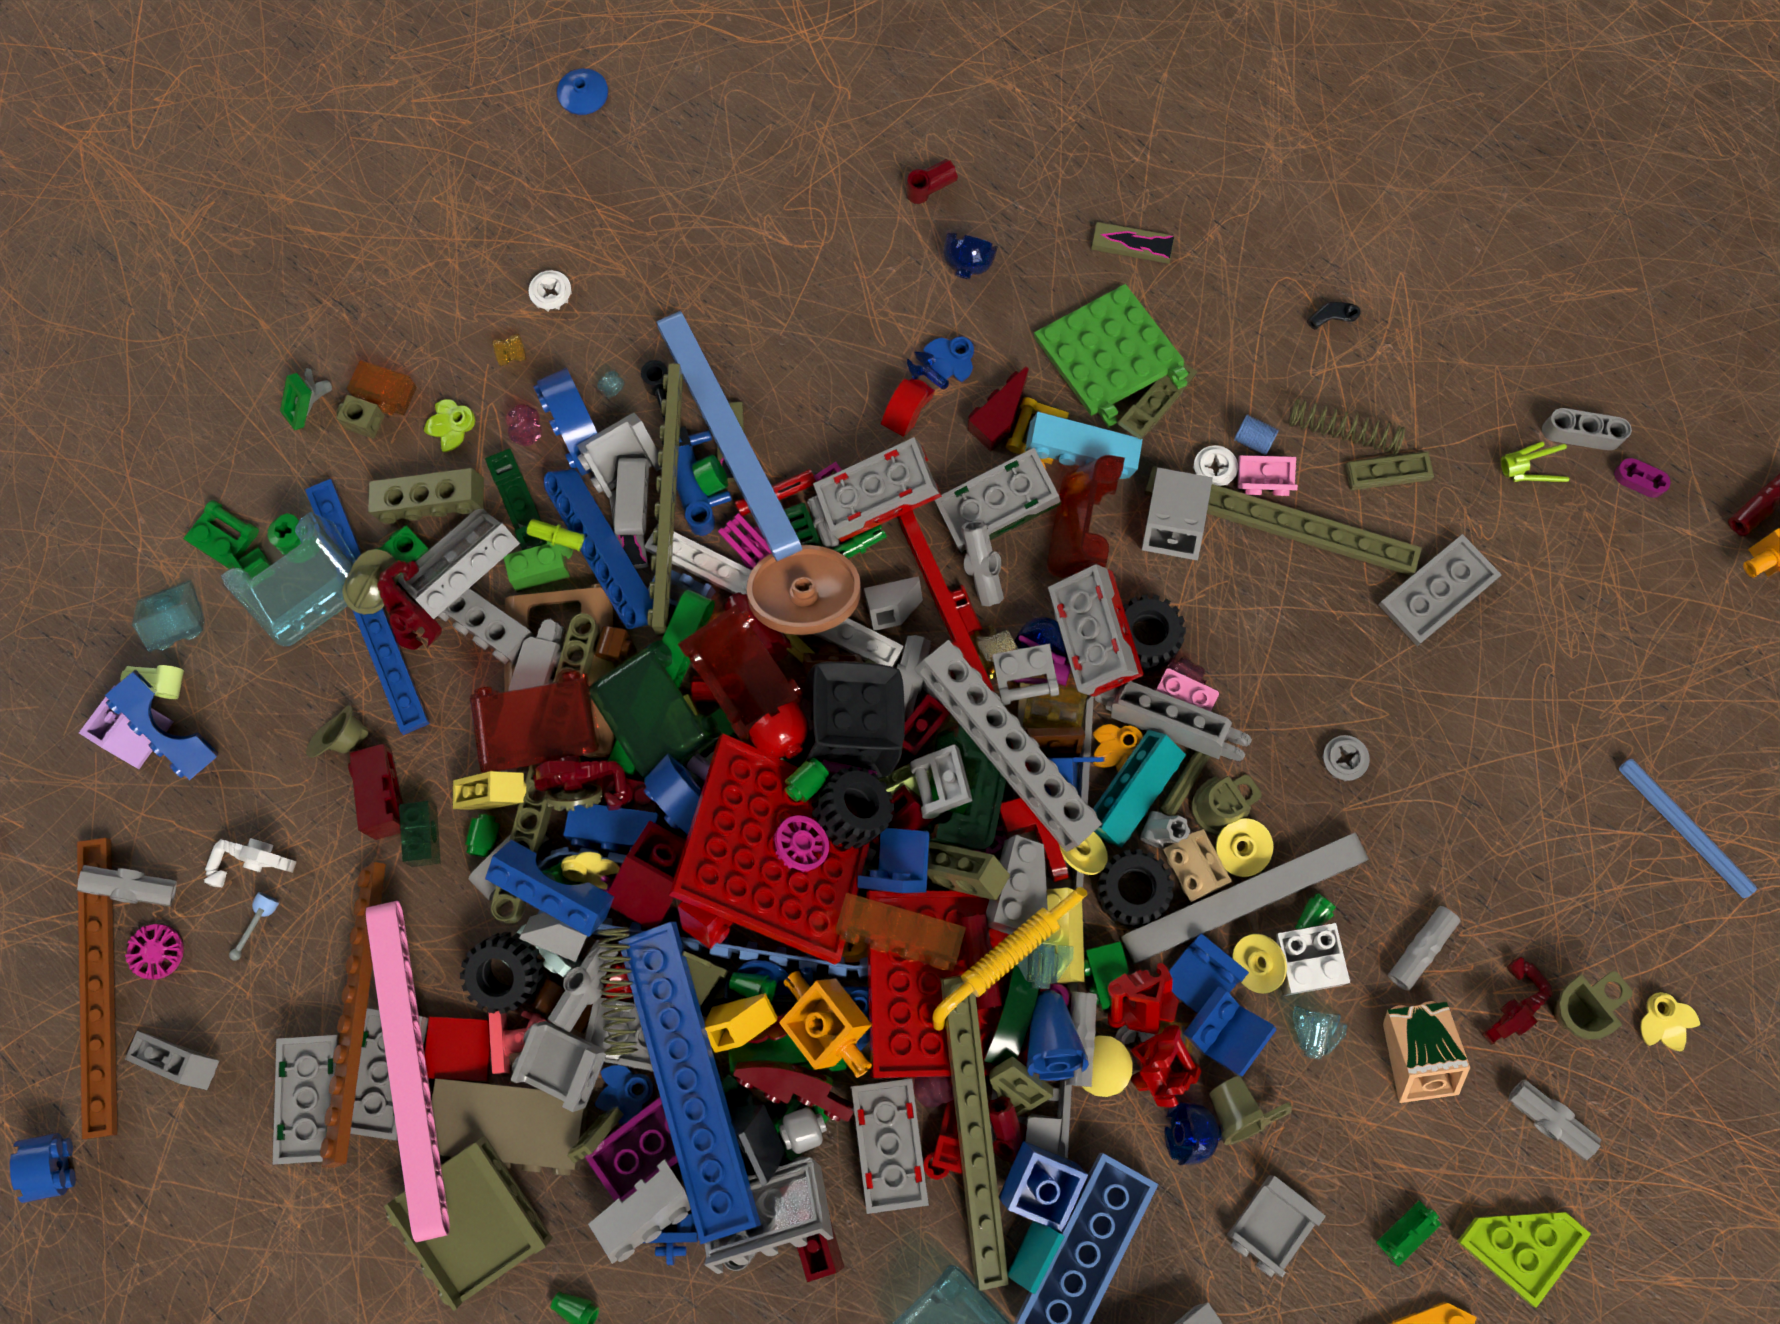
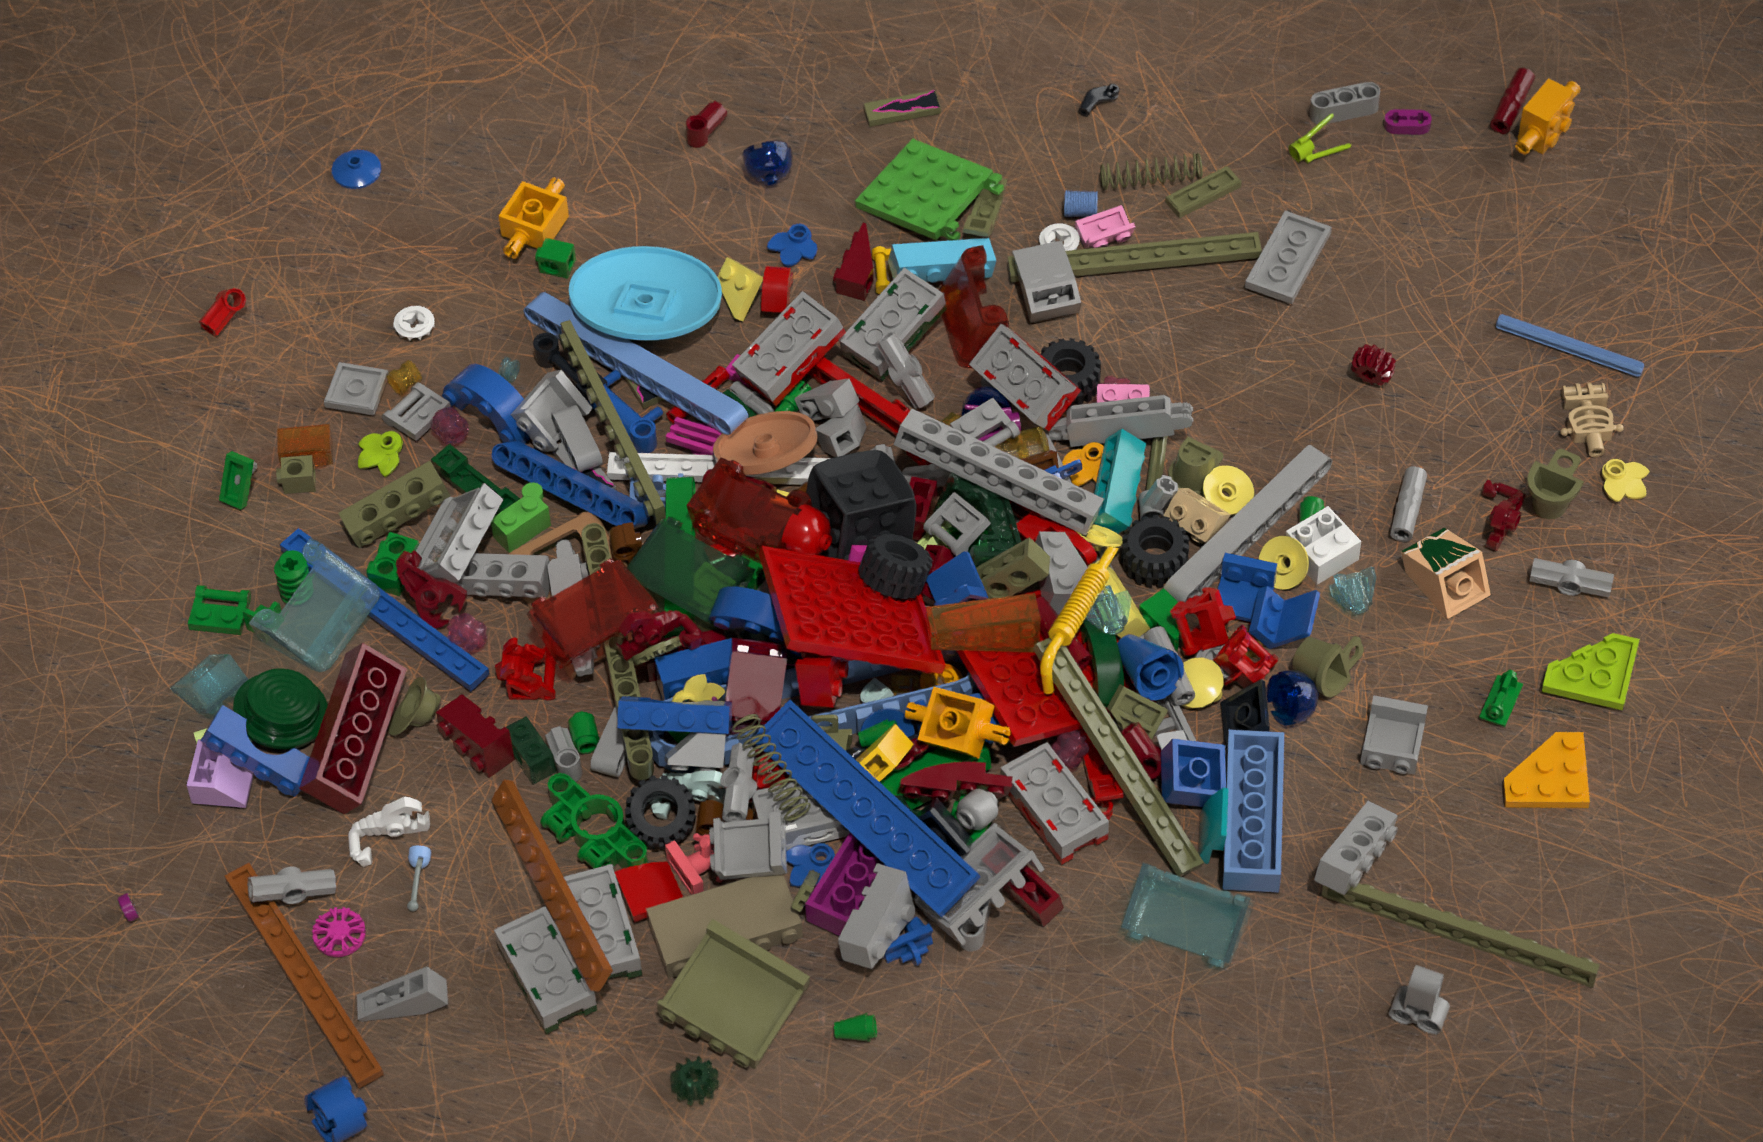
camera: 25 degrees left, 20 degrees down
(217, 677) = (281, 708): none -> dark green piece
(262, 738) = (353, 728): none -> dark red brick
(361, 587) = (381, 586): olive piece -> none
(376, 203) = (221, 312): none -> red piece
(383, 1303) = (705, 1082): none -> clear green gear
(407, 1072) = (623, 898): bright pink beam -> none
(425, 671) = (467, 632): none -> clear pink piece
(430, 919) = (574, 806): none -> green piece
(450, 739) = (518, 672): none -> red piece
(451, 849) = (564, 752): none -> light grey piece
(460, 342) = (356, 388): none -> light grey plate
(488, 790) = (577, 683): light yellow brick -> none
(500, 401) = (419, 417): none -> light grey plate
(555, 534) = (531, 482): lime axle -> none
(710, 475) = (637, 397): green piece -> none
(713, 220) = (533, 216): none -> light orange brick
(715, 275) = (556, 258): none -> green brick
(780, 328) = (614, 285): none -> medium azure dish
(801, 843) = (869, 598): dark pink wheel -> none
(806, 780) = (848, 555): green brick -> none
(873, 385) = (738, 287): none -> light yellow wing
(893, 561) = (828, 400): none -> light grey slope
(927, 360) = (773, 258): clear blue bar -> none
(1132, 1131) = (1246, 710): none -> black slope
(1347, 745) = (1276, 392): light grey gear -> none
(1466, 765) = (1373, 364): none -> dark red gear
(1661, 947) = (1590, 418): none -> tan torso

